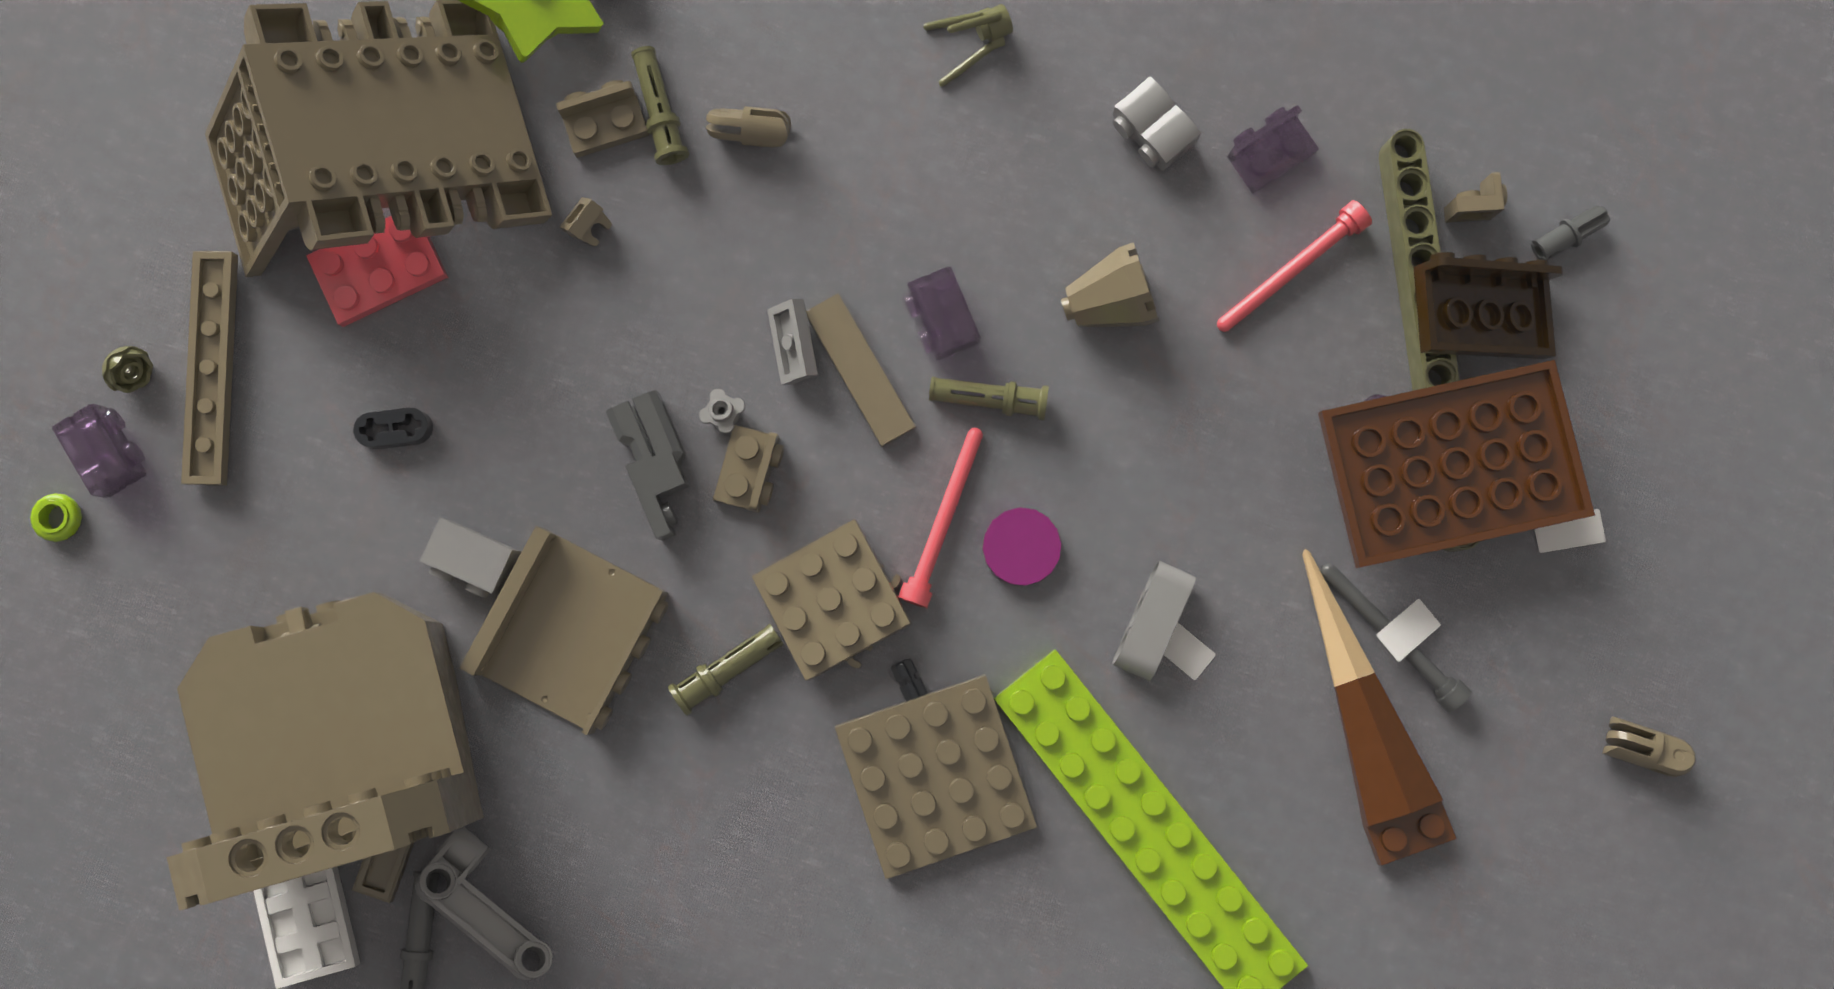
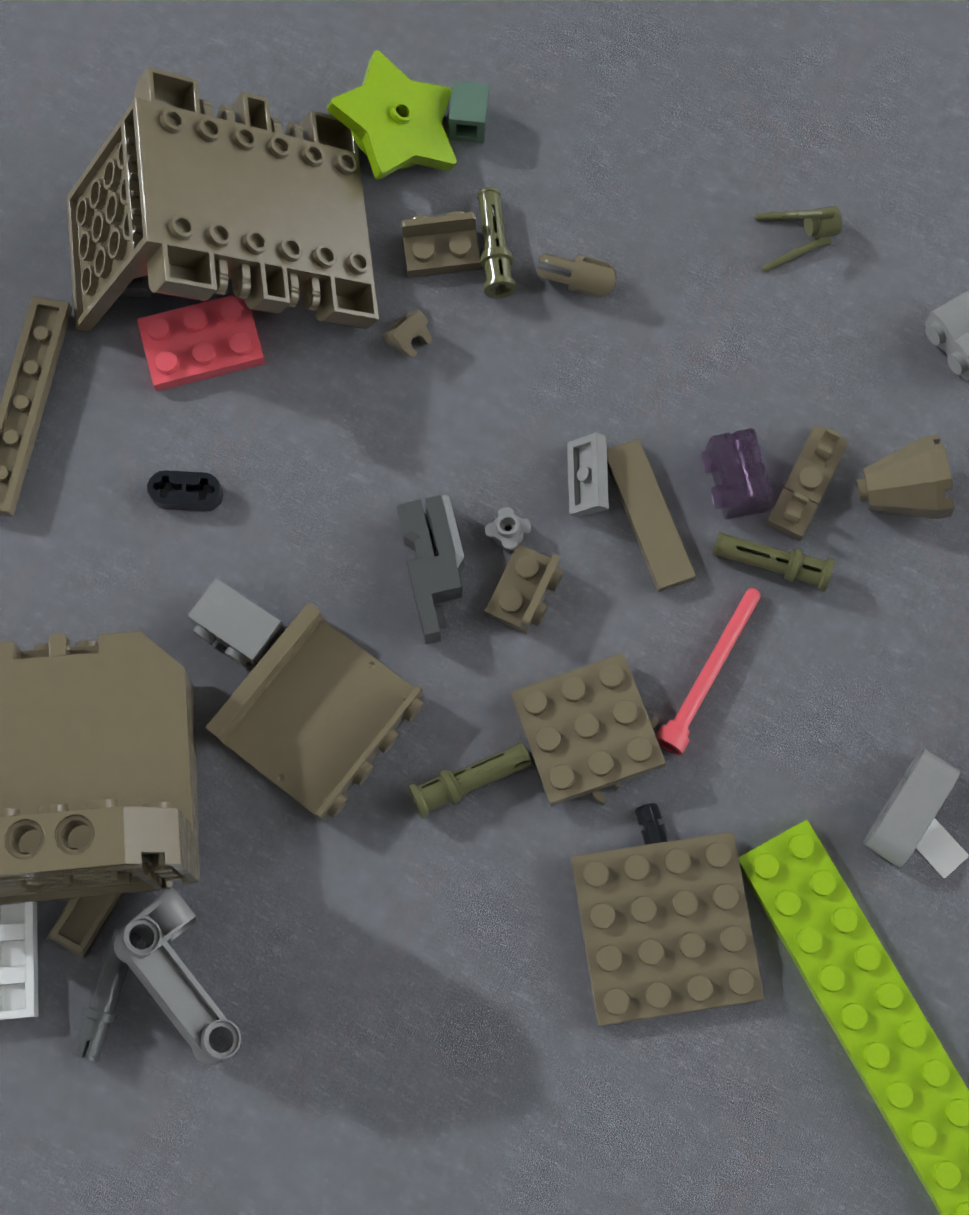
camera: 10 degrees right, 10 degrees down
(1014, 307) = (807, 482): none -> dark tan plate
(1021, 546) = (785, 711): magenta tile -> none

